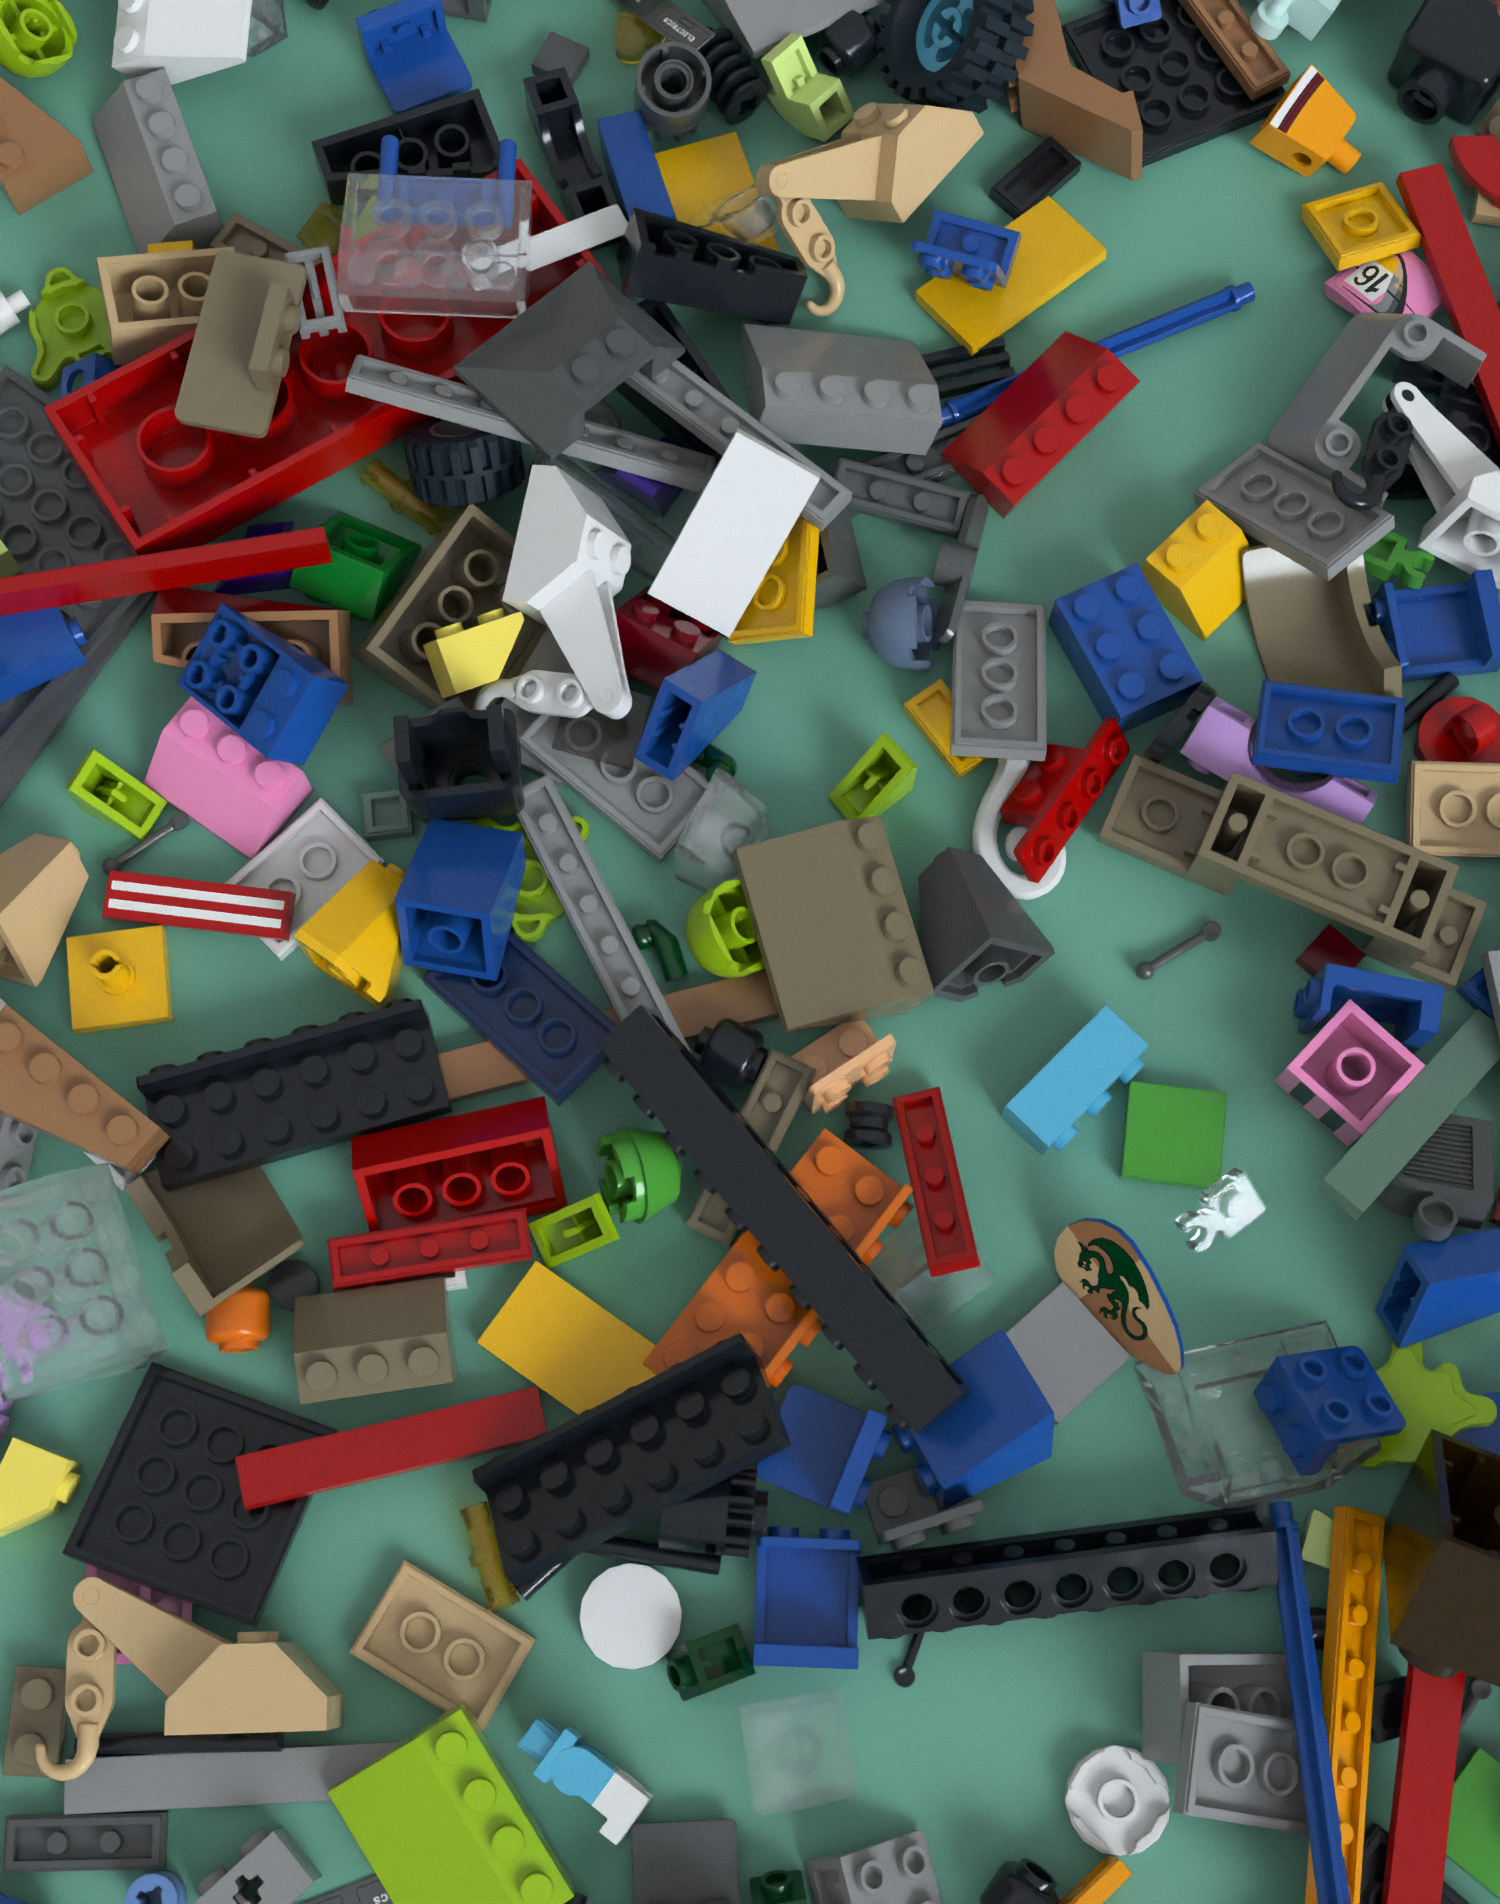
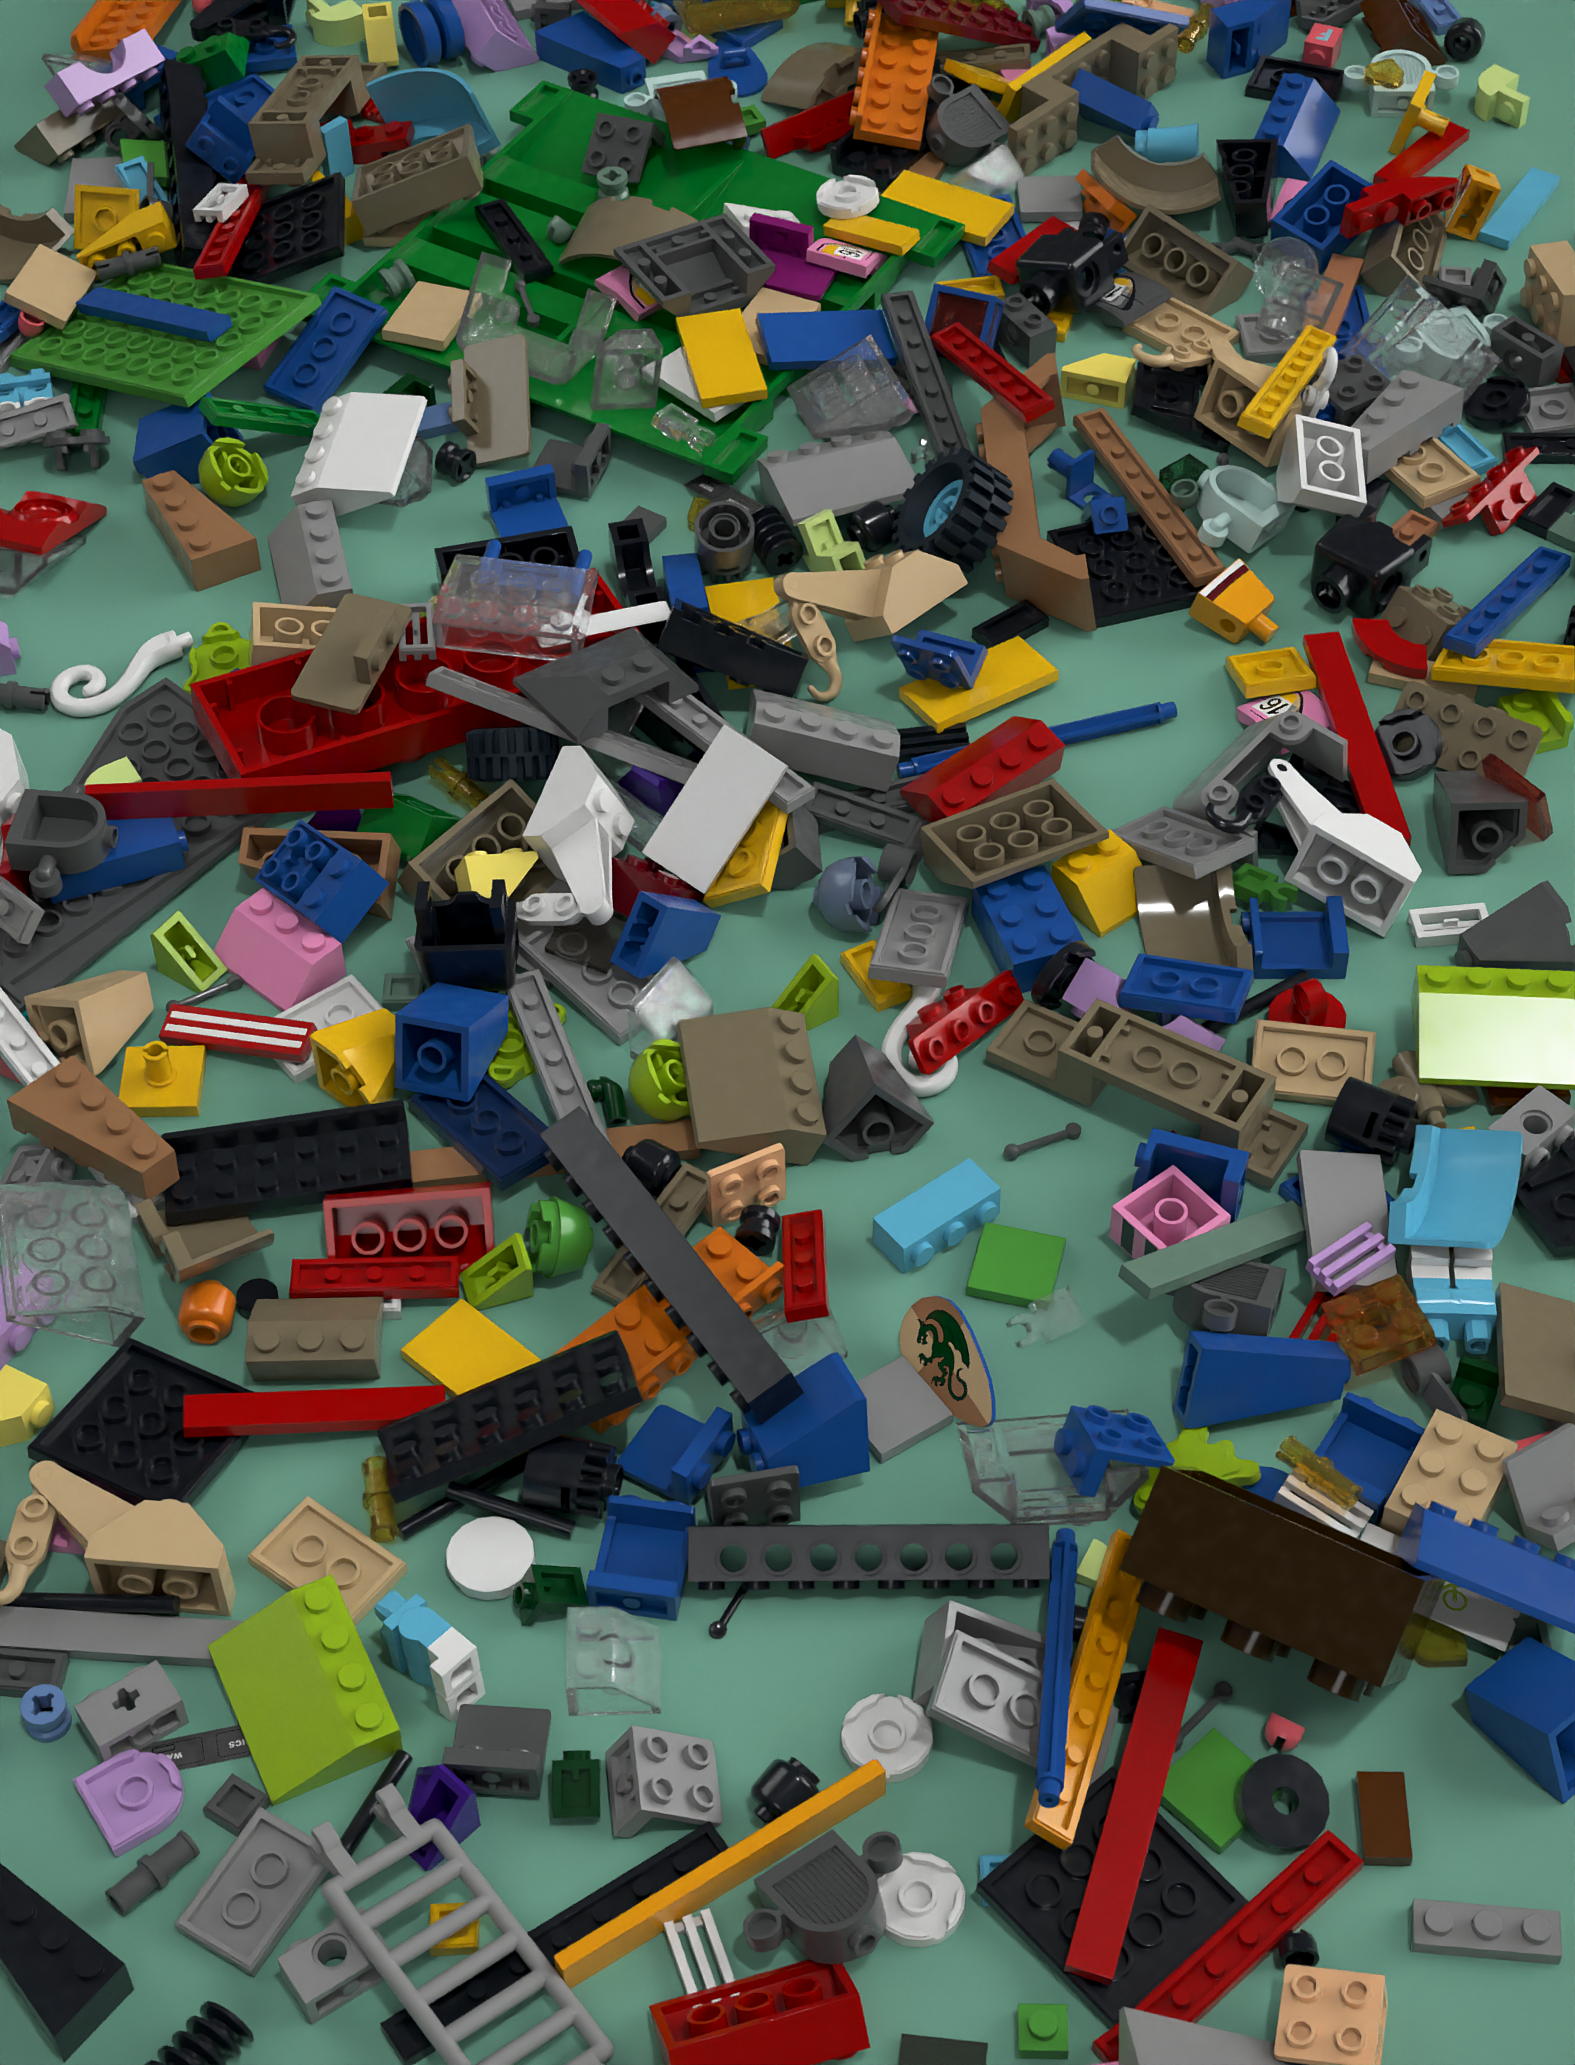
camera: 10 degrees right, 25 degrees down
(1092, 527) = (1008, 835): none -> dark tan slope

